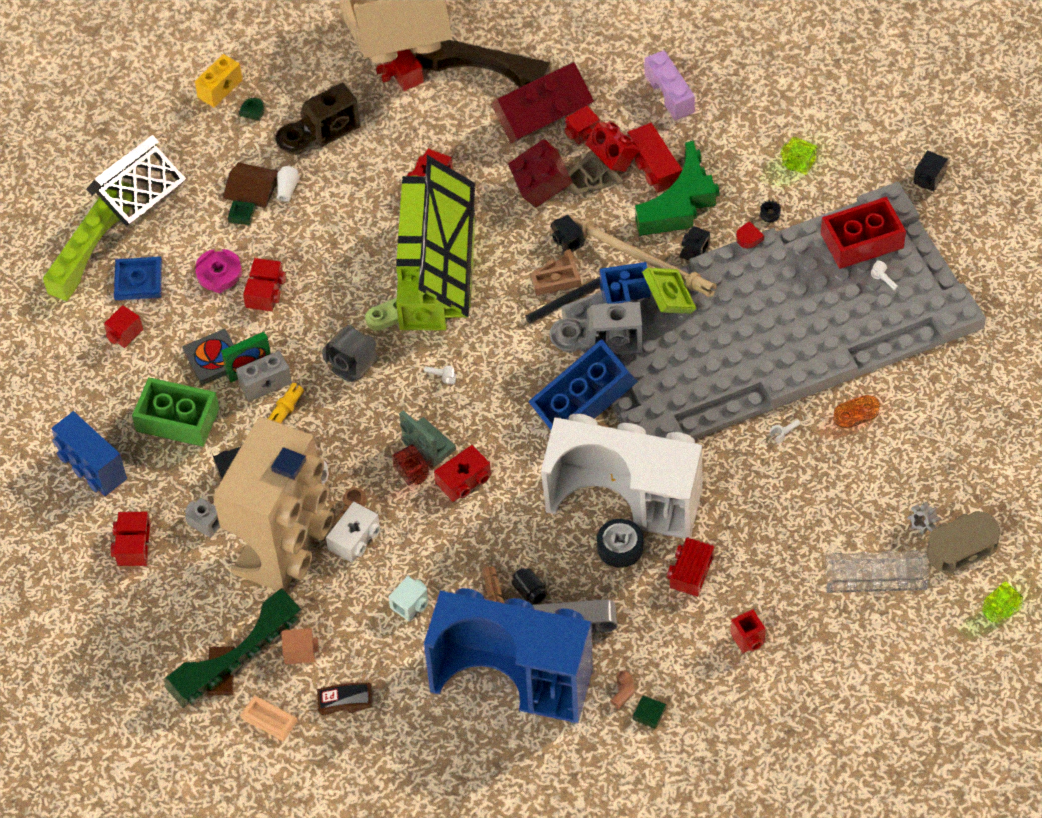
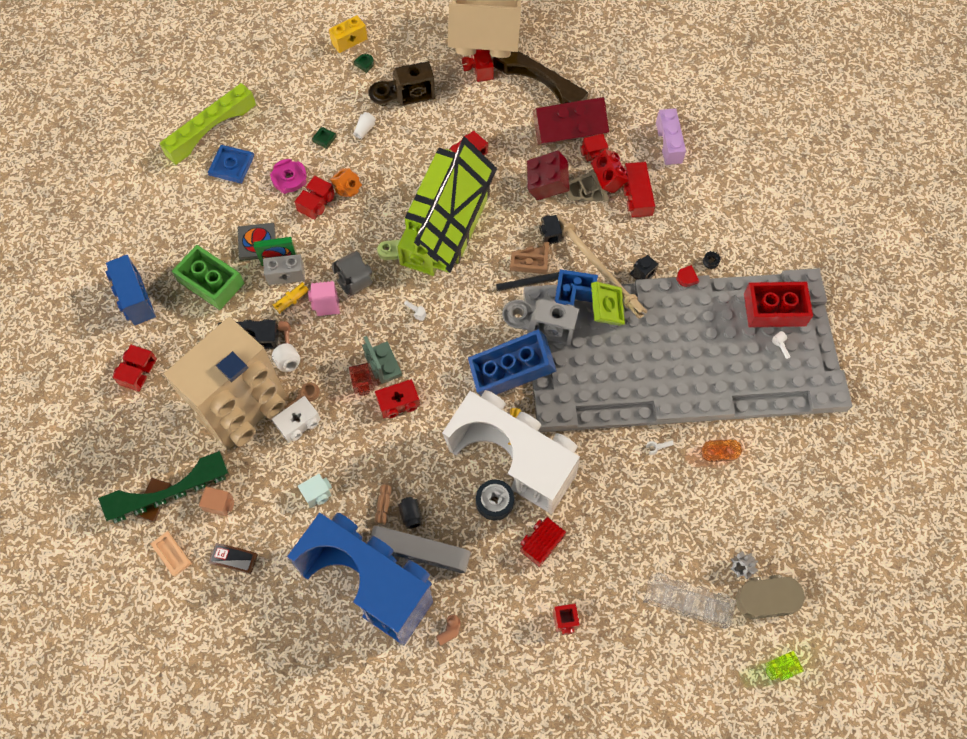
camera: 15 degrees right, 10 degrees up
(121, 170) = (247, 78): fence -> none
(123, 326) = (200, 198): red brick -> none
(250, 184) = (339, 118): reddish brown slope -> none
(296, 255) = (346, 183): none -> orange brick
(330, 390) = (324, 298): none -> bright pink brick
(649, 712) = (462, 658): dark green tile -> none
(678, 204) = (641, 233): green arch -> none
(798, 155) = (749, 222): clear neon green brick -> none
(930, 171) = (847, 267): black brick -> none

